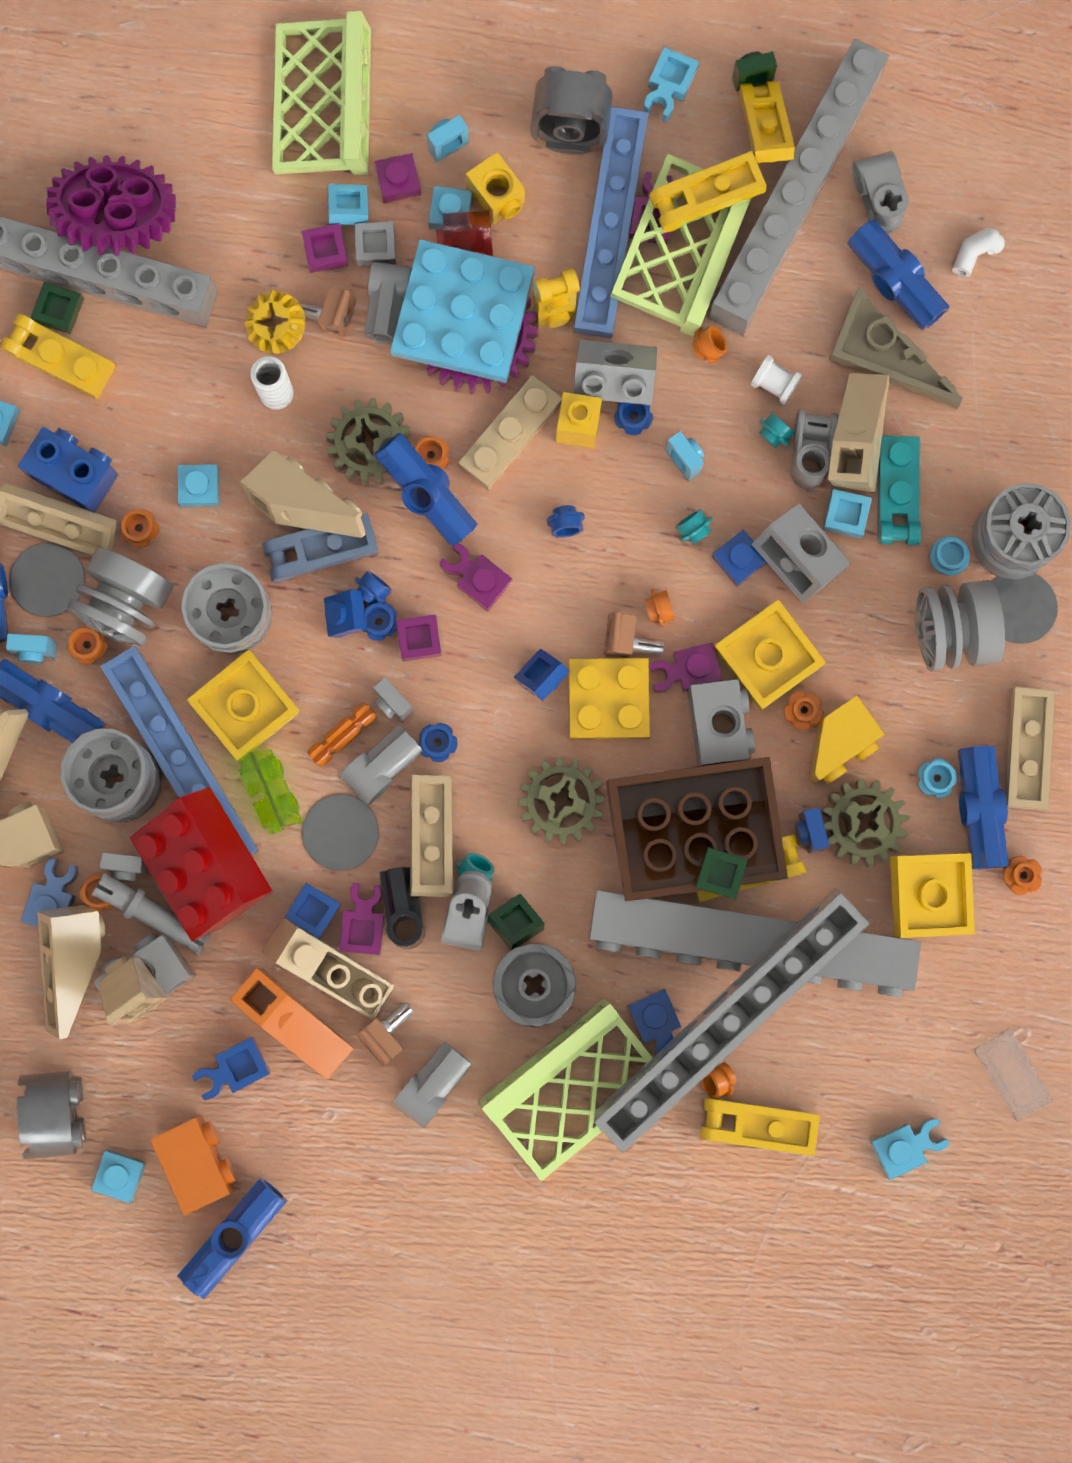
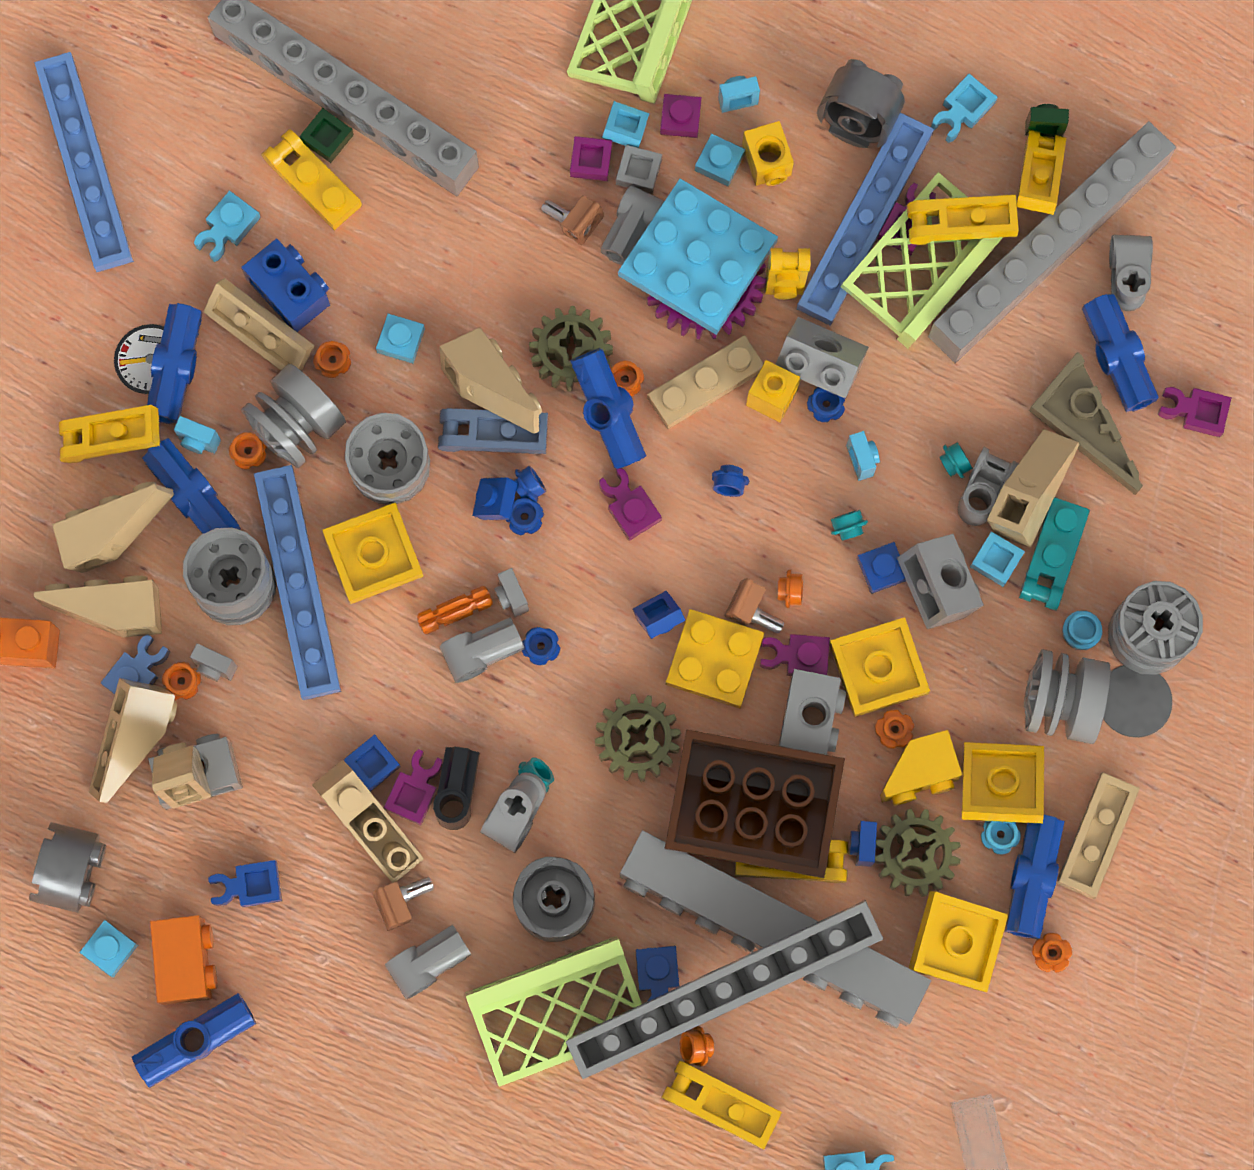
camera: 20 degrees right, 5 degrees down
(46, 579) = (231, 378): flat silver sticker -> none
(111, 205) = (407, 58): magenta gear -> none
(147, 911) = (222, 715): light grey pin -> none
(200, 863) = (283, 683): red brick -> none
(264, 774) = (370, 621): clear neon green hinge -> none
(268, 370) = (499, 278): white piece -> none
(286, 334) = (528, 225): yellow gear -> none
(291, 1022) = (317, 859): orange slope -> none
(340, 832) = (422, 700): flat silver sticker -> none
(418, 638) = (556, 543): magenta plate -> none
(431, 836) = (505, 729): tan plate -> none
(467, 231) = (727, 185): clear red brick -> none
(516, 922) = (557, 835): dark green plate -> none
(709, 344) = (920, 360): orange plate -> none
(721, 873) = (762, 850): dark green plate -> none
(776, 379) = (971, 413): white bush -> none
(925, 728) = (1003, 782): none -> yellow plate
(984, 241) = (1203, 348): white arm -> none
(995, 307) = (1202, 411): none -> magenta plate

